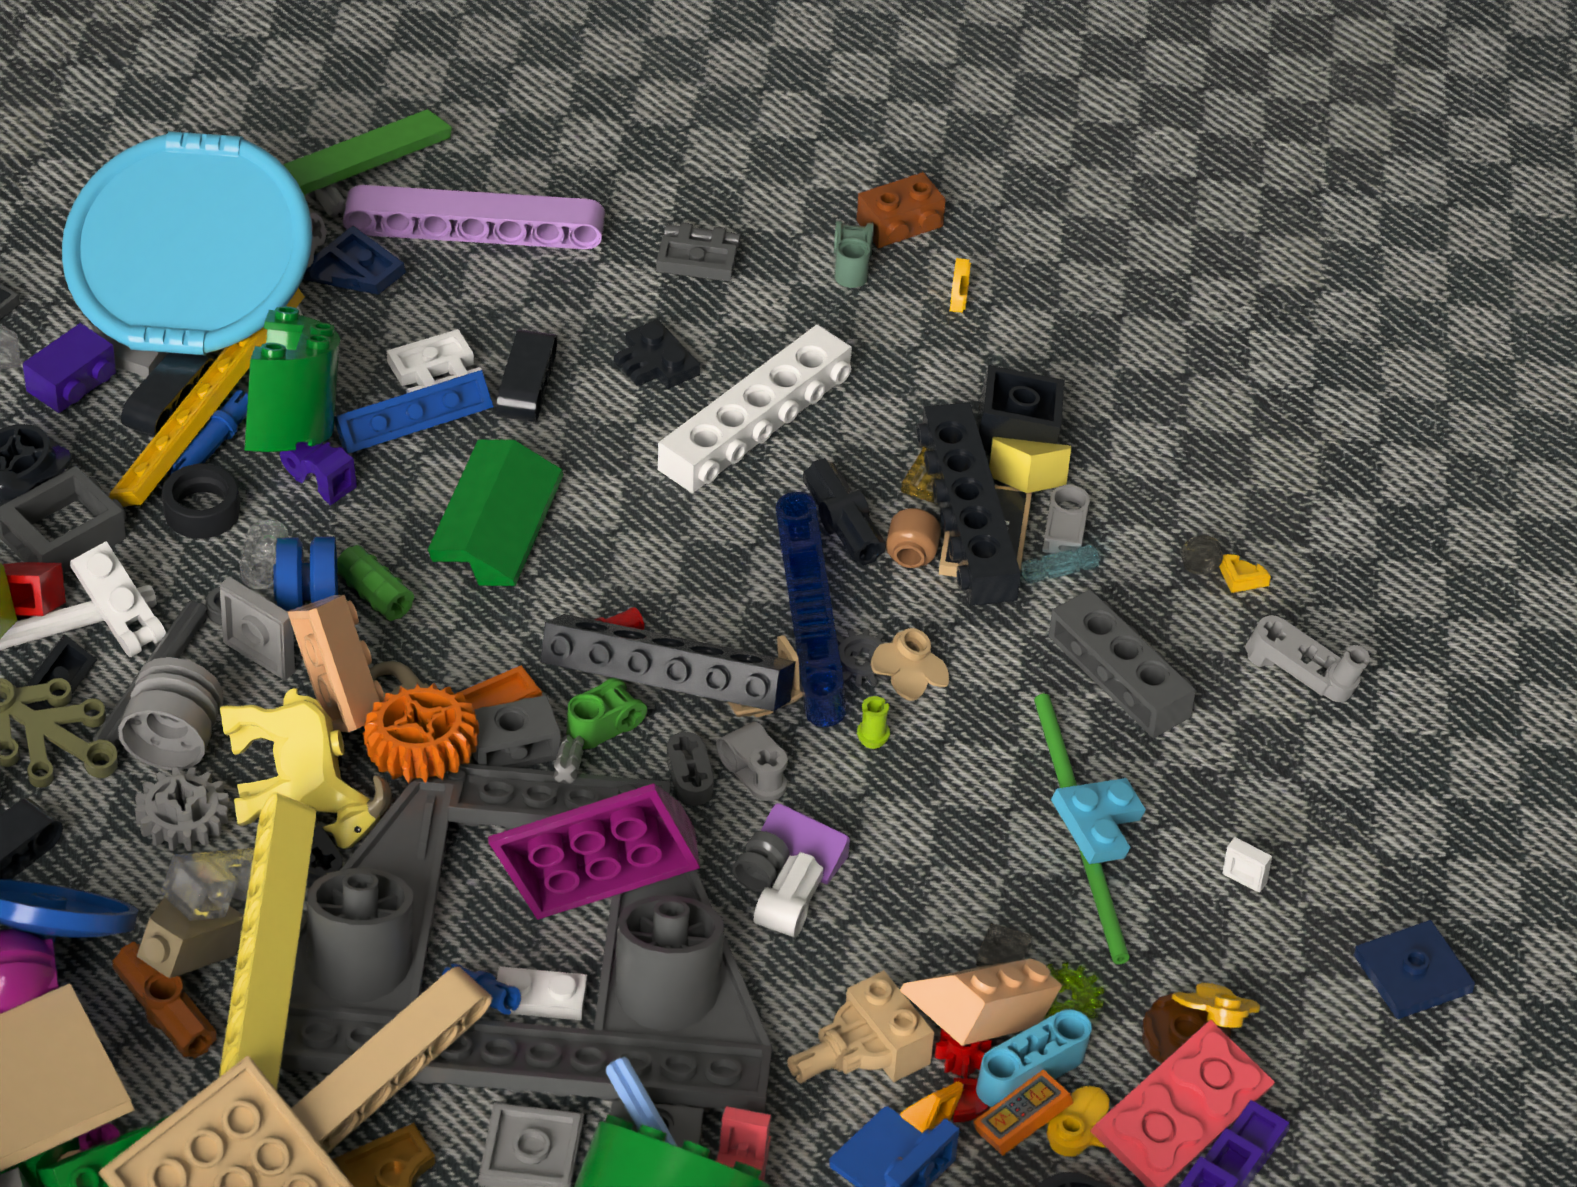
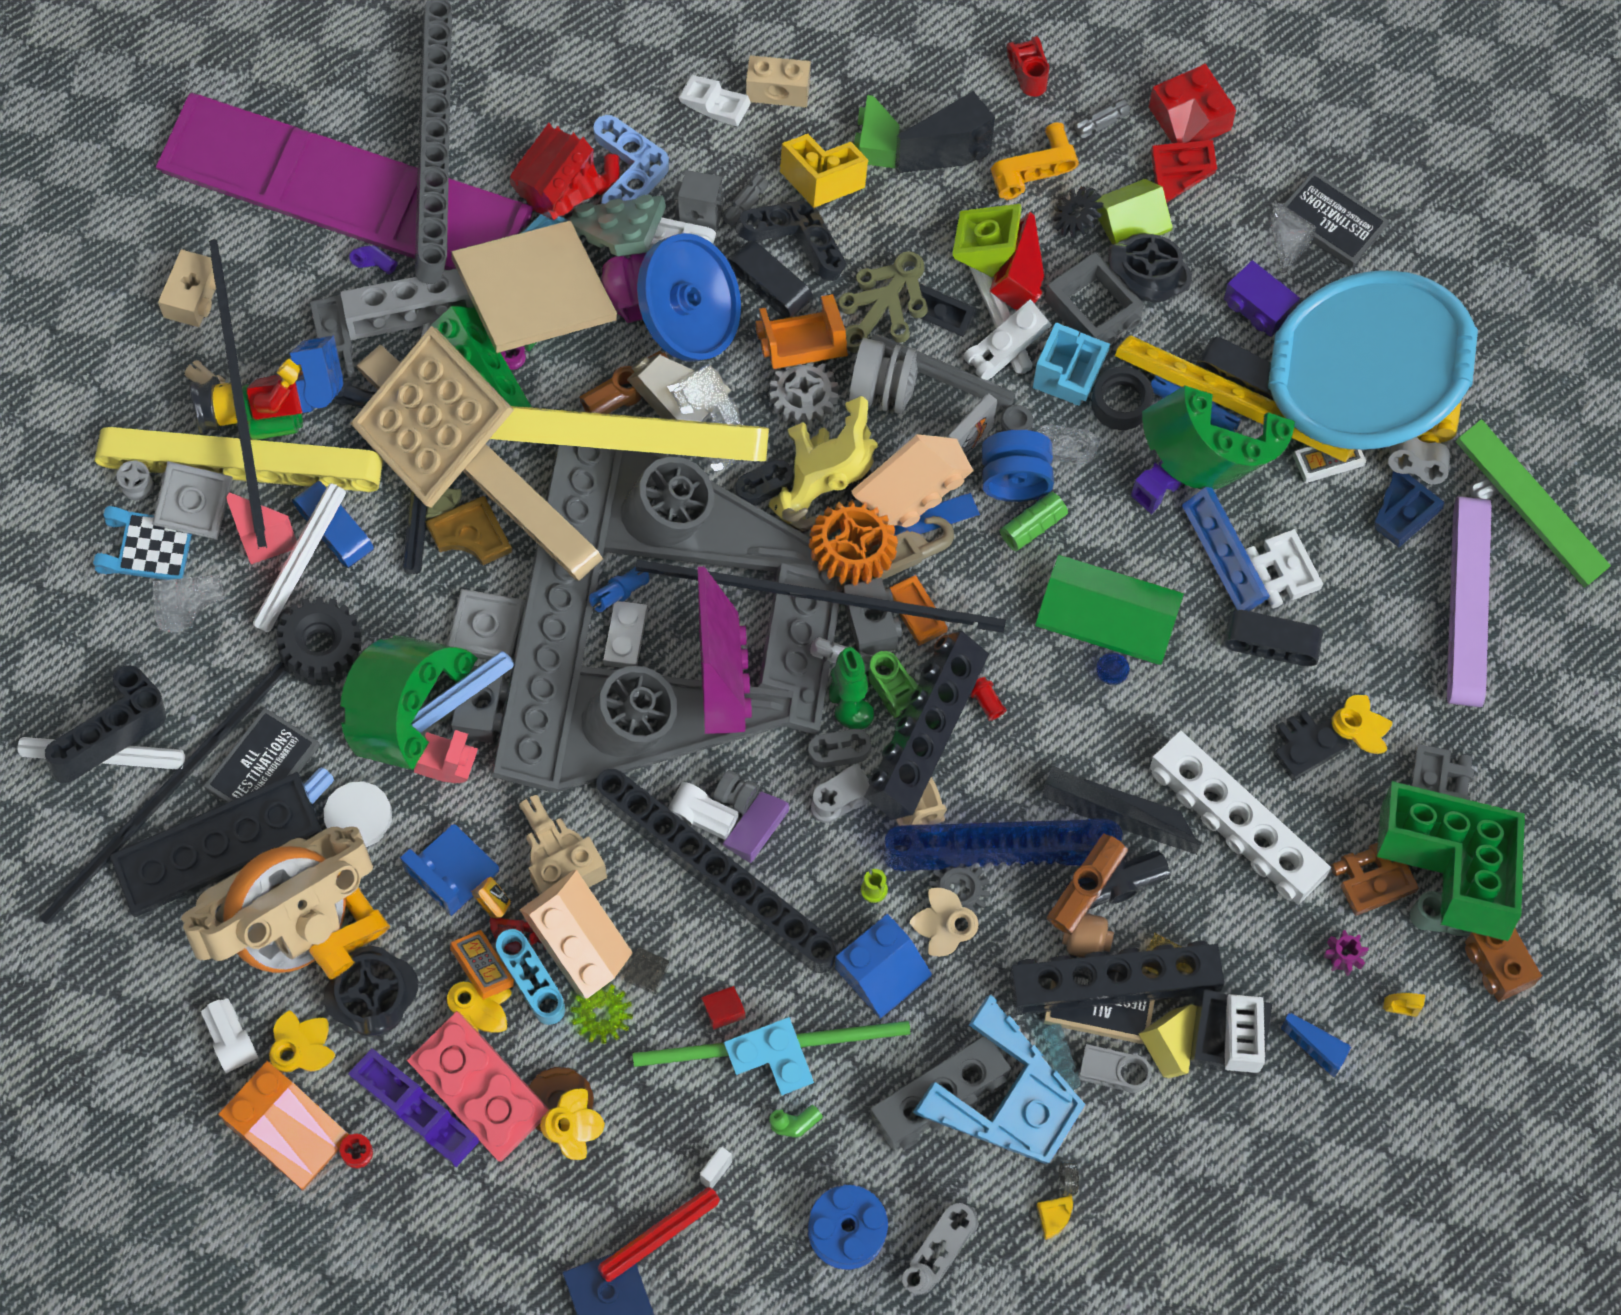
camera: 95 degrees right, 20 degrees up
(97, 800) = (803, 337): none -> orange panel
(158, 541) = (1069, 364): none -> medium azure plate
(527, 611) = (984, 622): none -> black piece
(570, 515) = (1112, 669): none -> clear blue plate
(621, 717) = (849, 689): none -> green piece
(633, 309) = (1361, 724): none -> yellow plate
(752, 510) = (1128, 811): none -> black wedge
(790, 206) = (1469, 843): none -> green brick
(825, 300) = (1376, 887): none -> dark orange plate
(865, 512) = (1076, 901): none -> dark orange piece
(865, 881) = (721, 884): none -> black beam
(908, 327) = (1350, 943): none -> magenta gear
(968, 721) = (882, 966): none -> blue slope
(1023, 345) = (1320, 1045): none -> blue slope
(1030, 381) = (1244, 1056): none -> white slope
(1043, 869) = (724, 1007): none -> red slope
(1125, 575) = (1034, 1111): none -> wing
(1178, 798) = (793, 1125): none -> bright green arm
(1294, 742) = (847, 1206): none -> blue wheel
(1338, 915) = (658, 1234): none -> red axle

